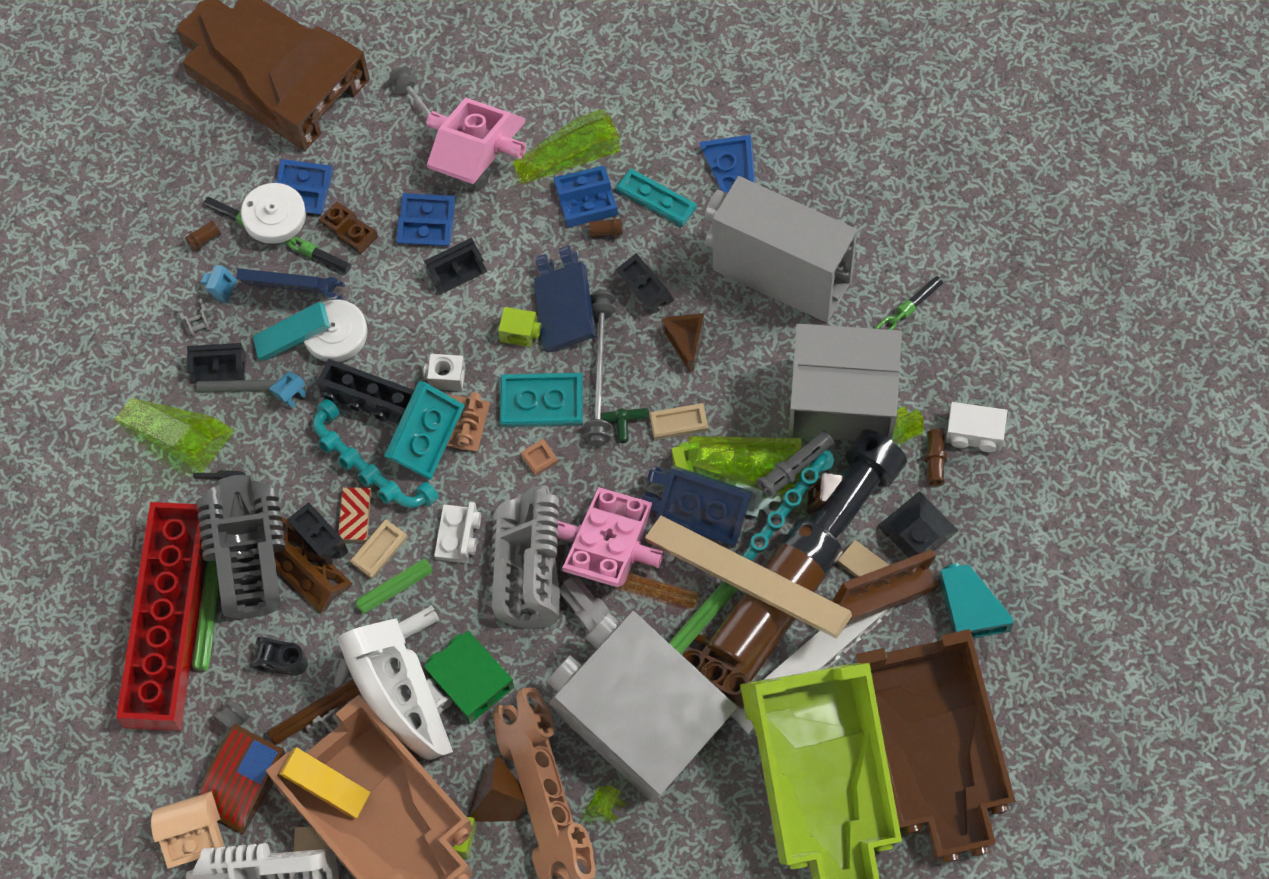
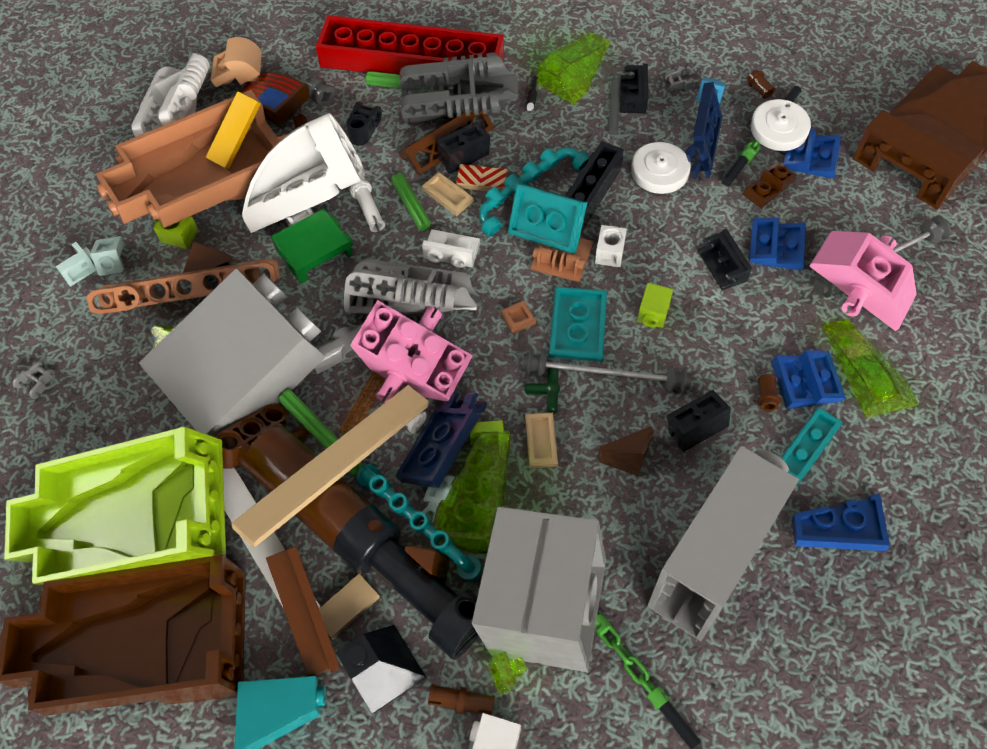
camera: 95 degrees right, 5 degrees down
(287, 387) = (605, 132): dark azure tile -> none
(291, 331) = (659, 134): teal tile -> none
(563, 301) = (683, 345): dark blue tile -> none
(786, 471) = (449, 517): dark grey pin -> none

